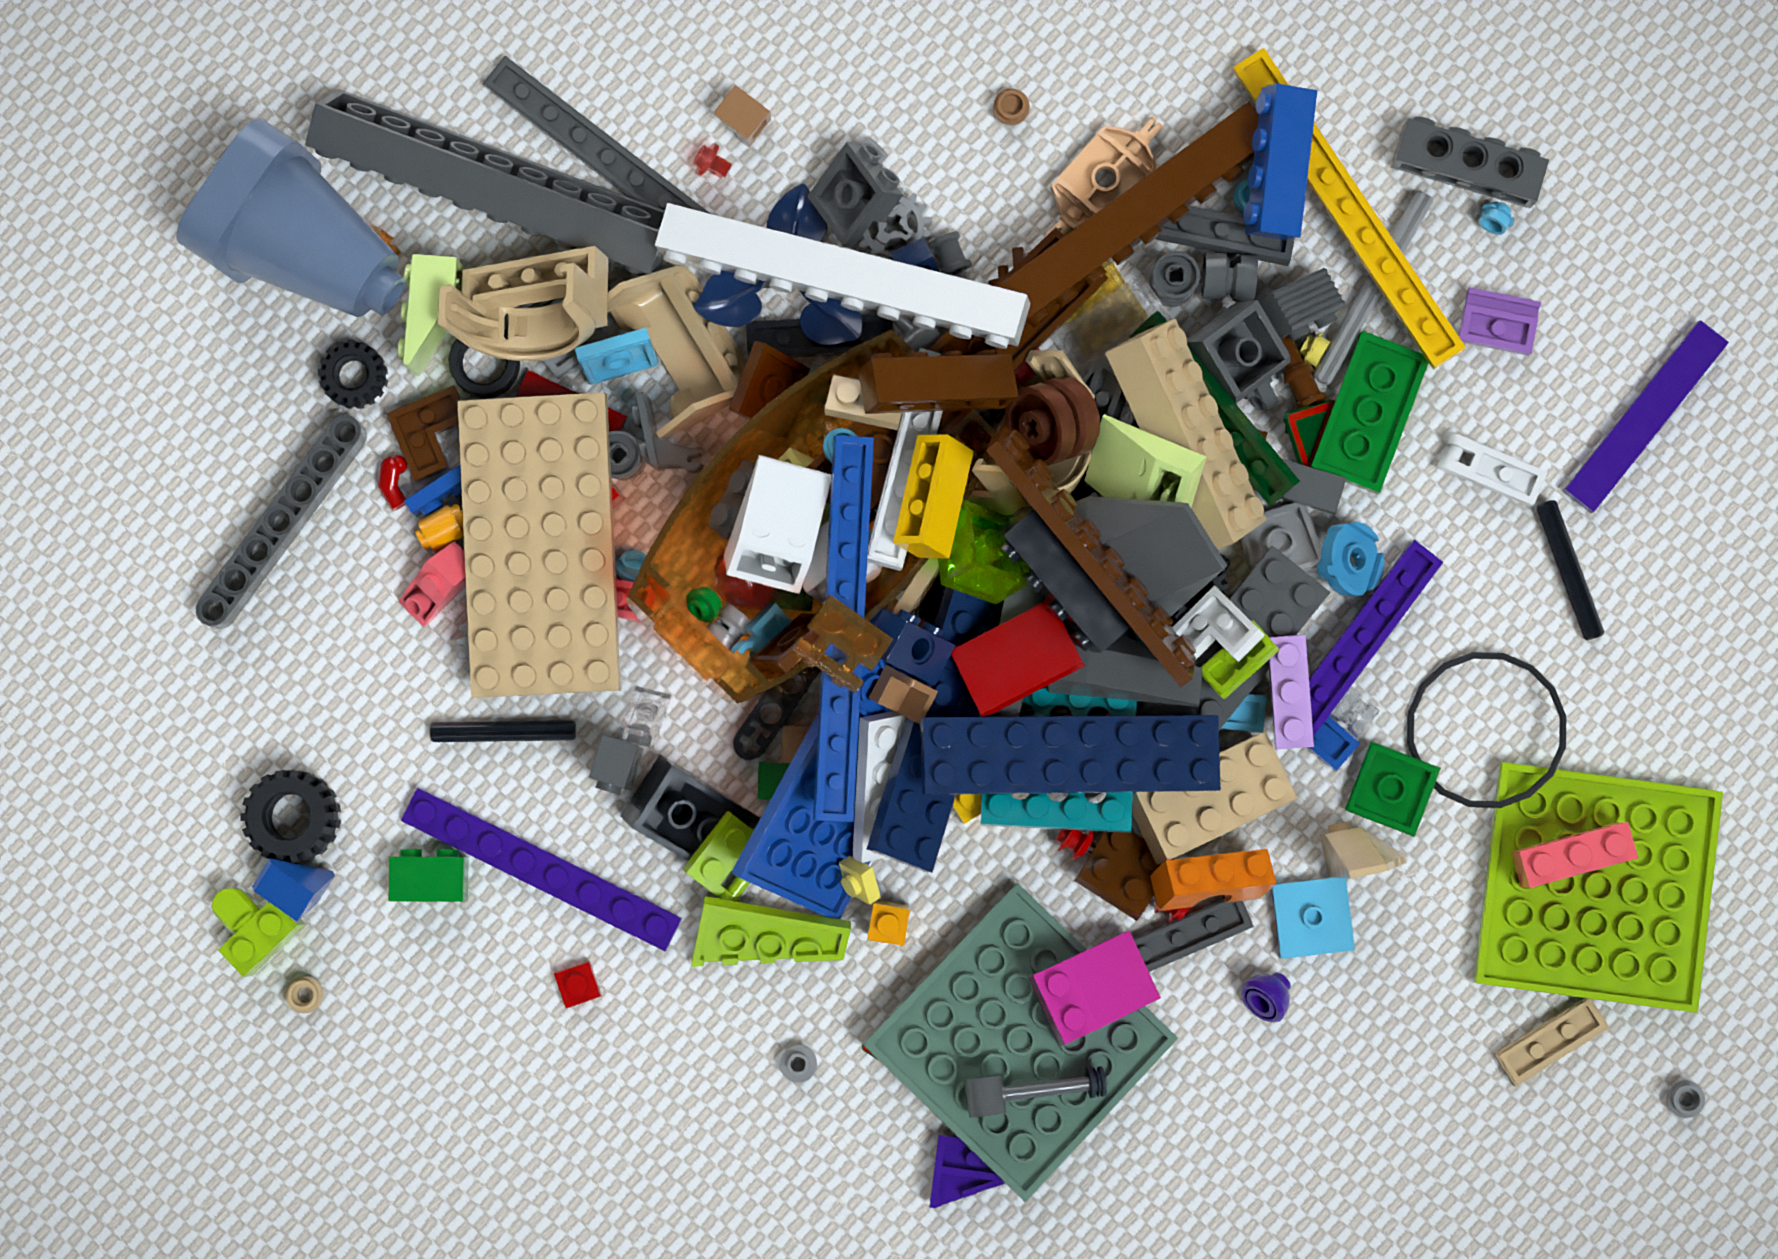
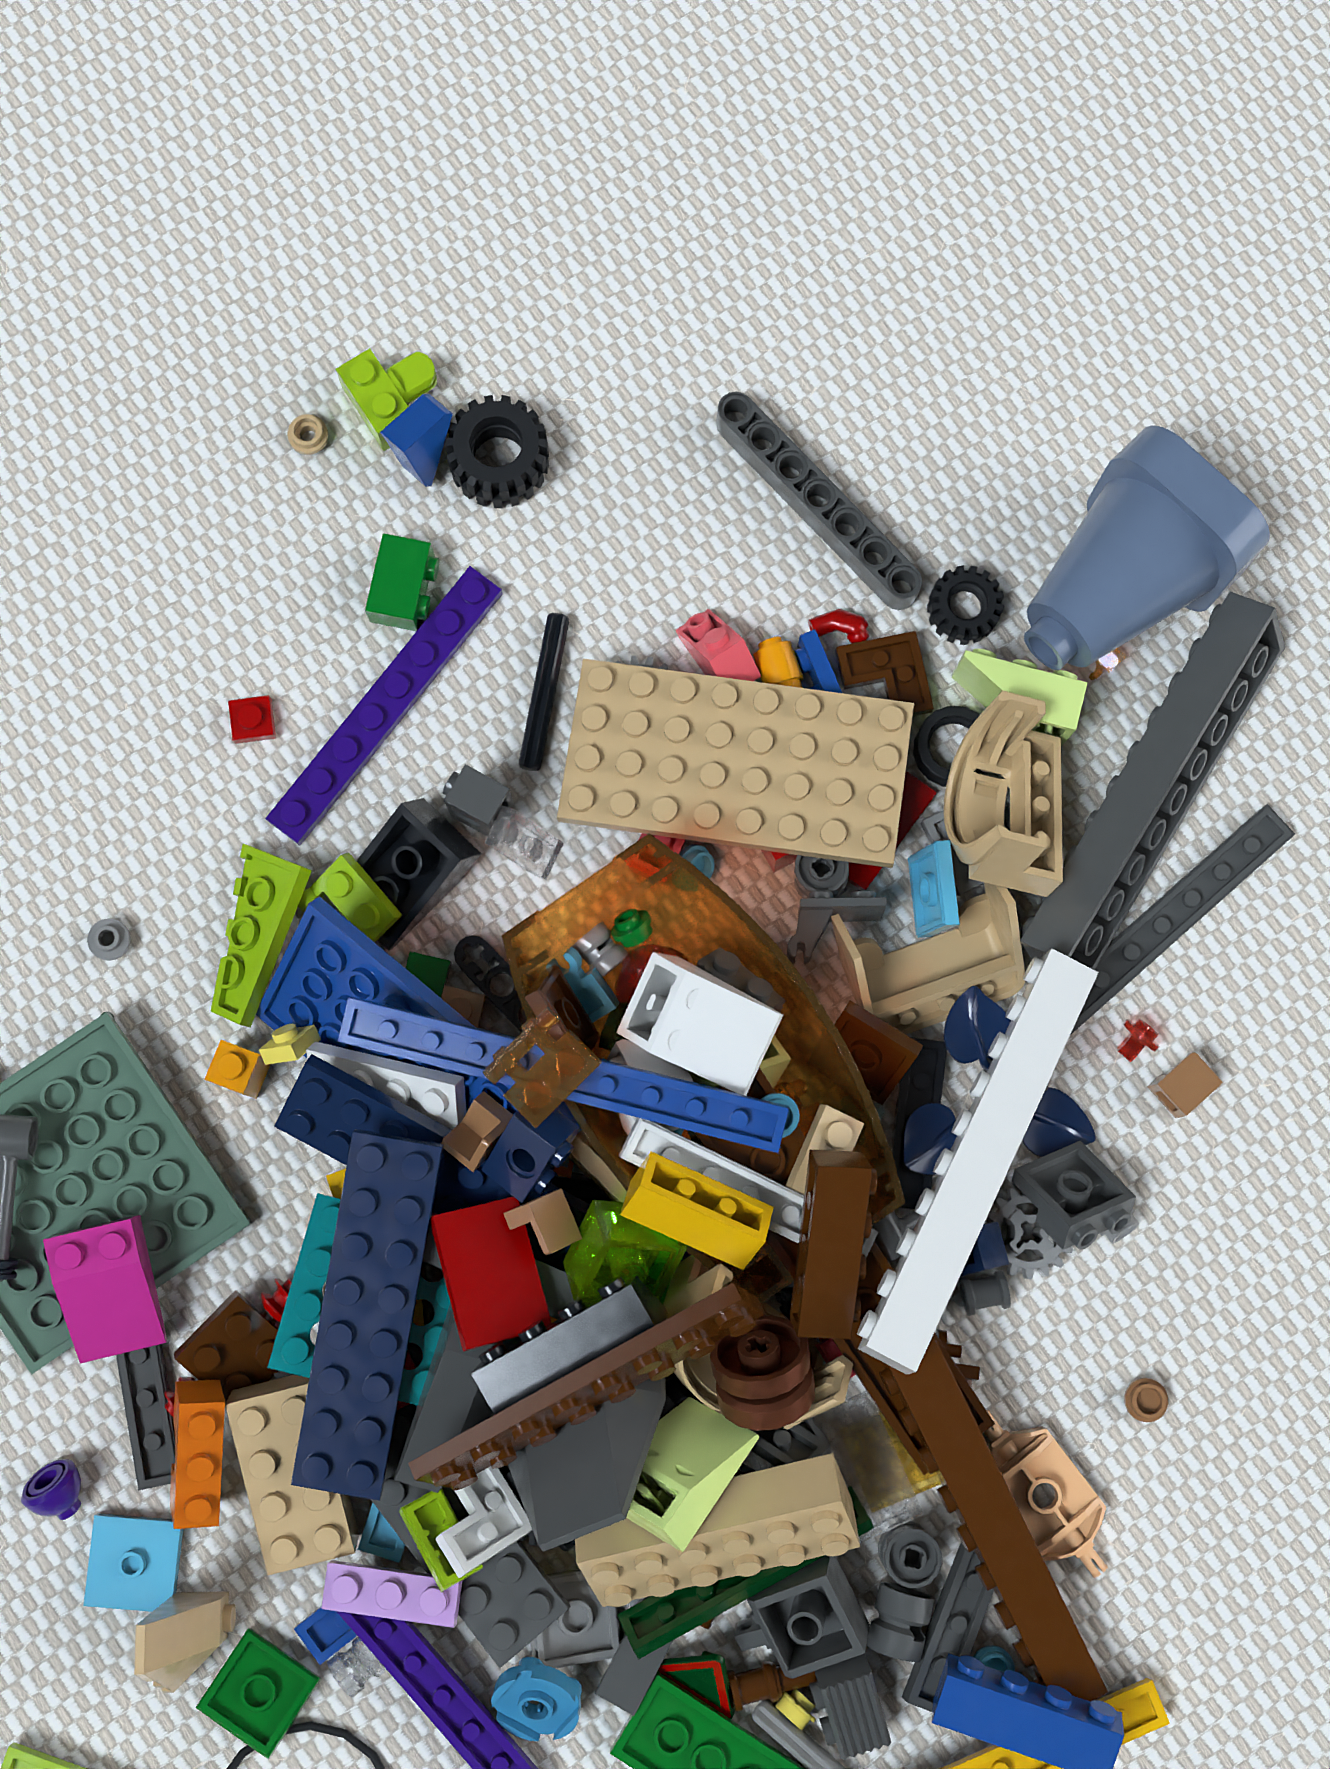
camera: 95 degrees right, 5 degrees down
(963, 617) = (550, 1221): none -> medium nougat panel

